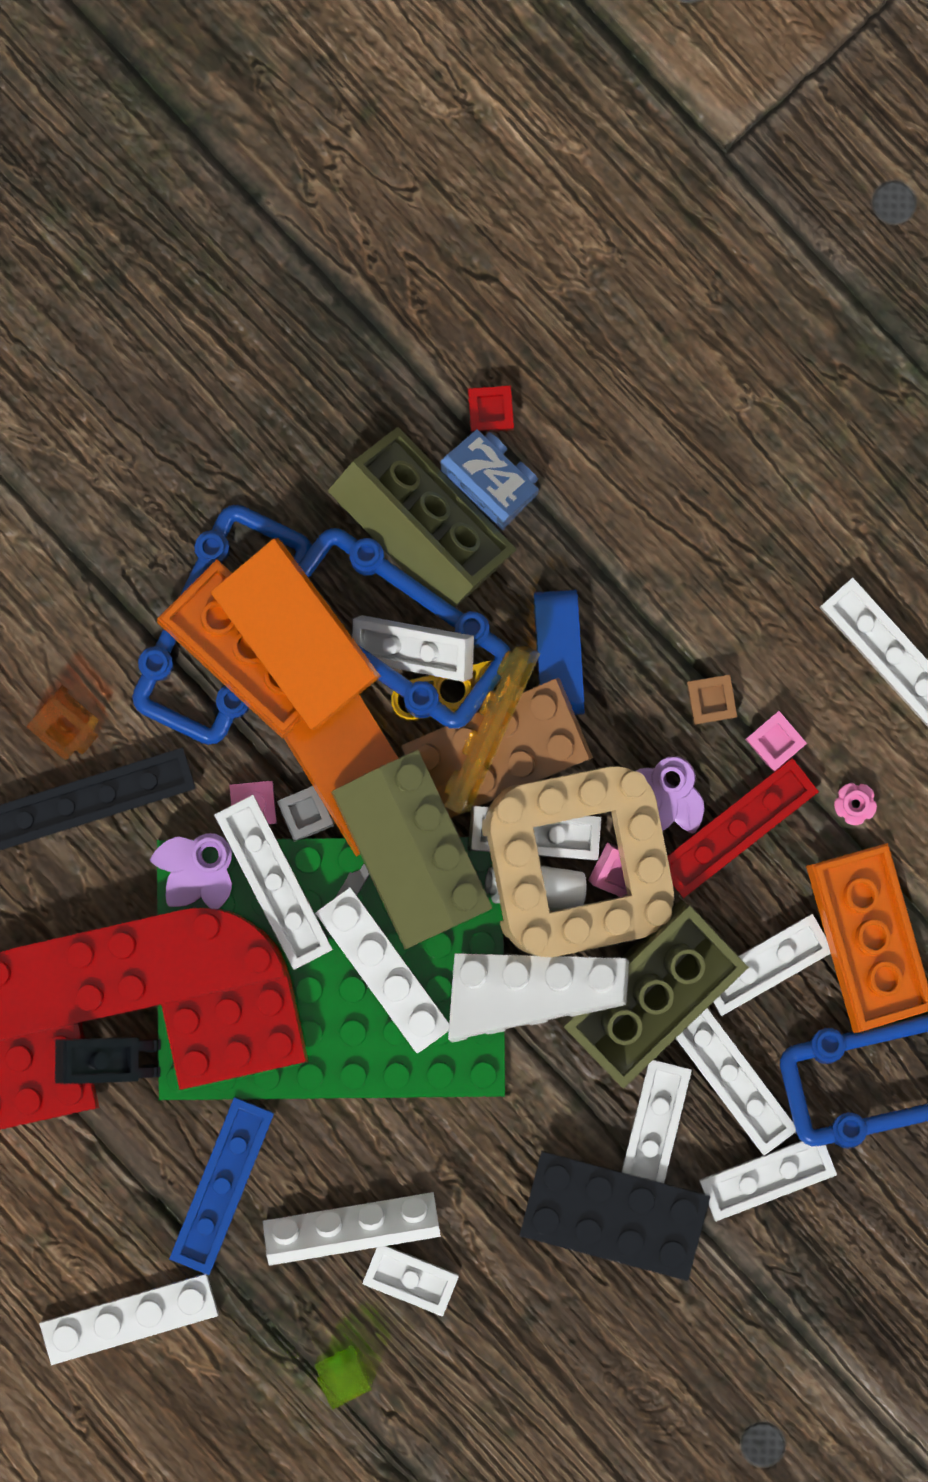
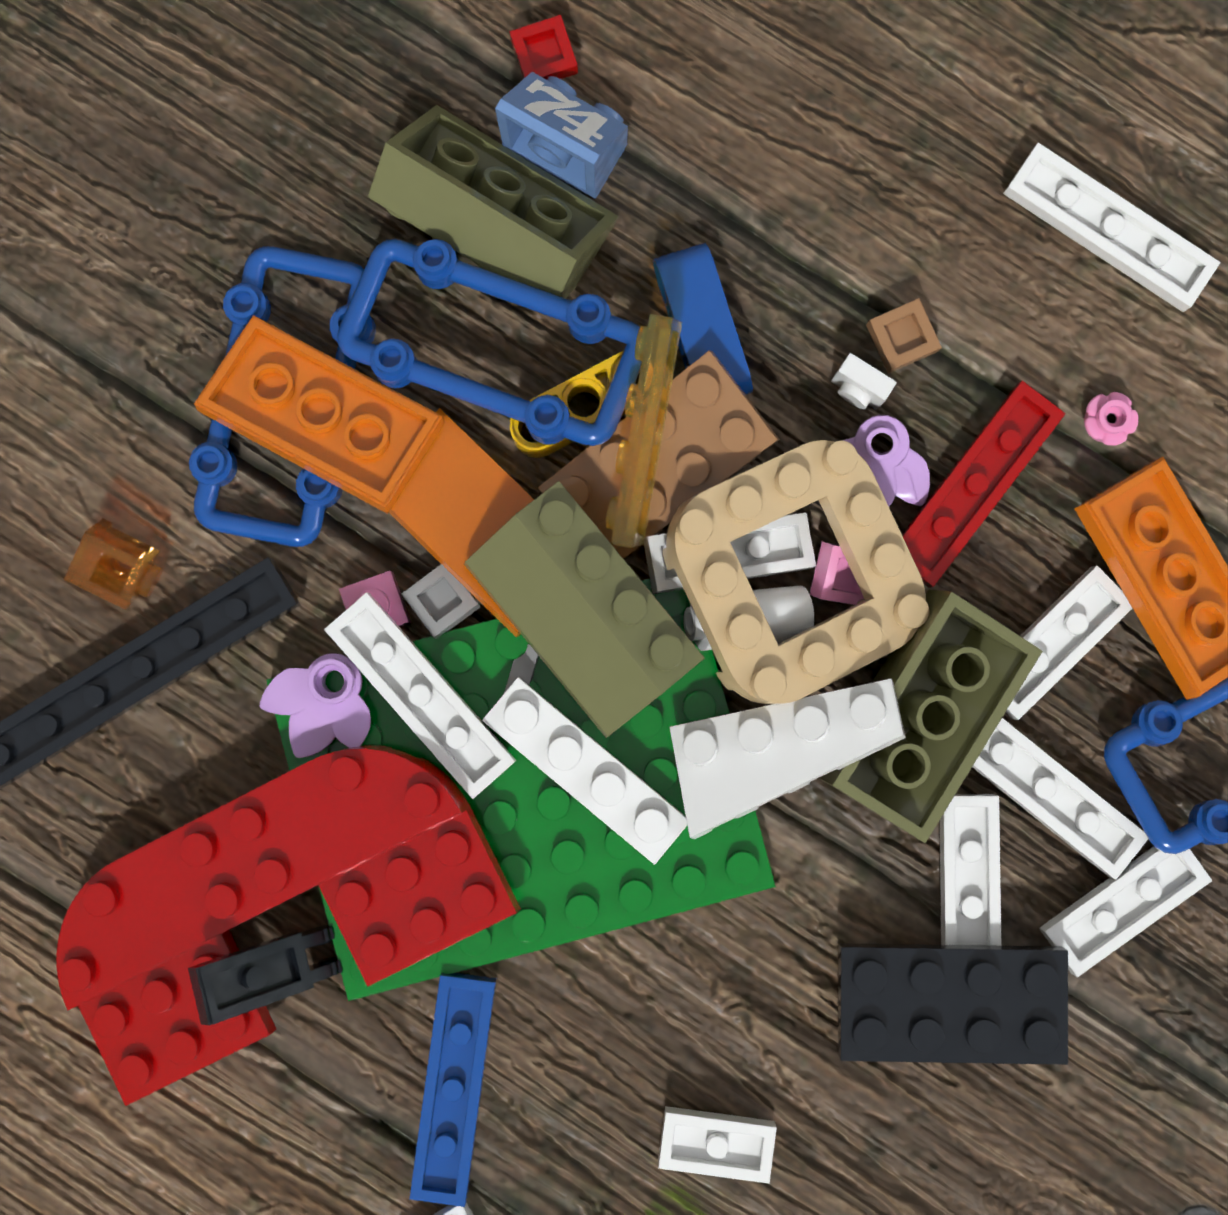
camera: 15 degrees left, 0 degrees up
(295, 634) = (368, 375): orange tile -> none
(351, 1228) = (626, 1101): white plate -> none
(416, 647) = (528, 357): white plate -> none
(669, 729) = (862, 383): none -> white plate
(776, 741) = (995, 366): bright pink plate -> none

